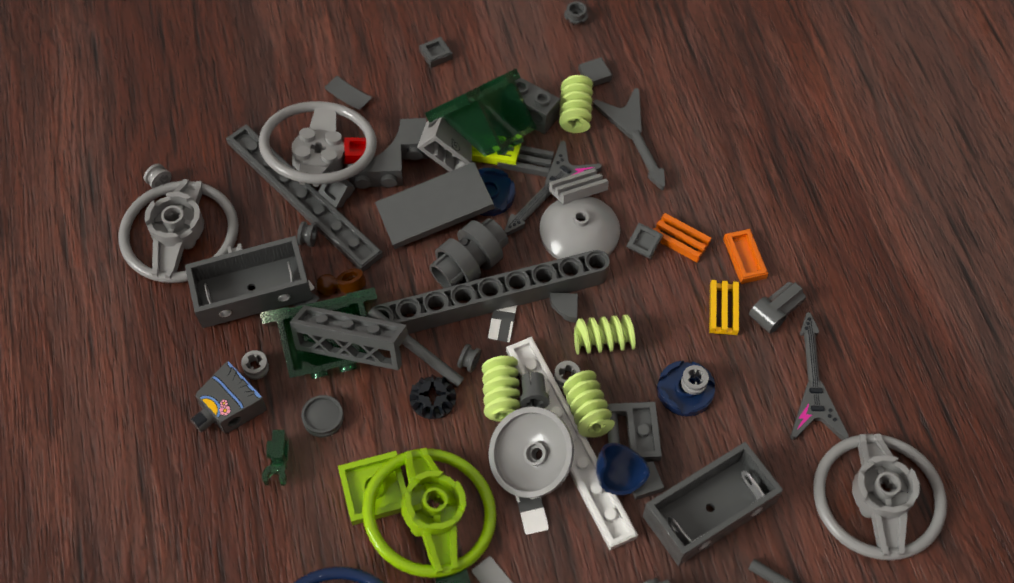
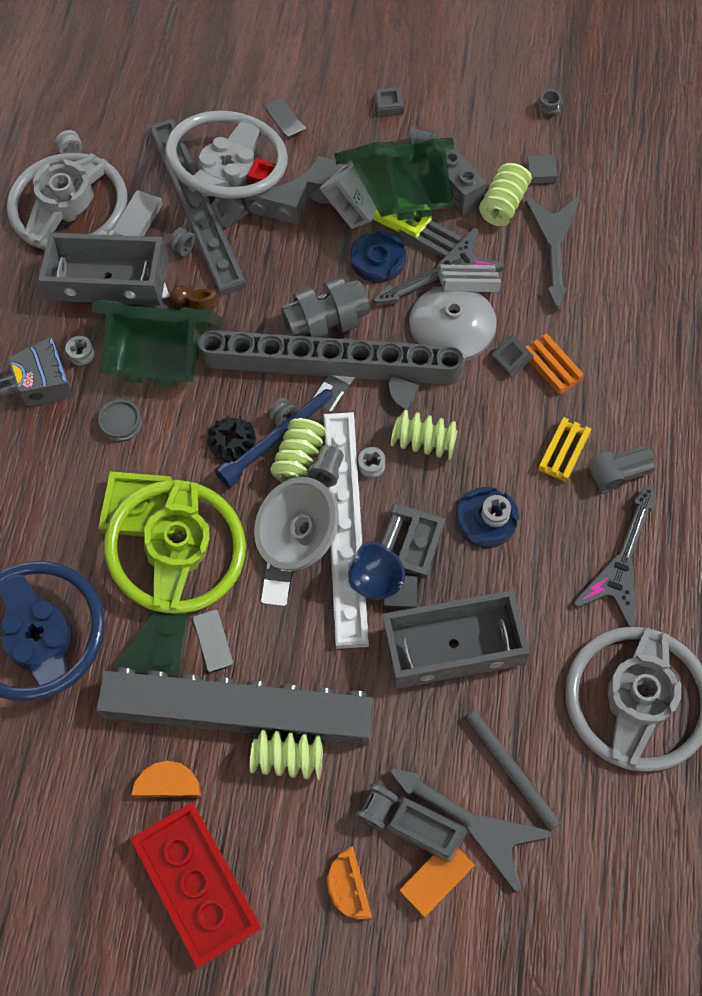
camera: 25 degrees right, 5 degrees up
(253, 223) = (138, 214): none -> light grey tile
(278, 453) = (62, 442): clear green plate -> none
(348, 330) = (169, 344): dark grey fence -> none
(423, 353) = (232, 383): dark grey bar -> none
(434, 205) = (315, 252): dark grey tile -> none
(447, 427) = (230, 472): none -> dark blue piece
(481, 76) = (418, 136): none -> dark grey bush
(588, 404) = (375, 497): yellowish green piece -> none
(745, 256) = (612, 405): orange tile -> none

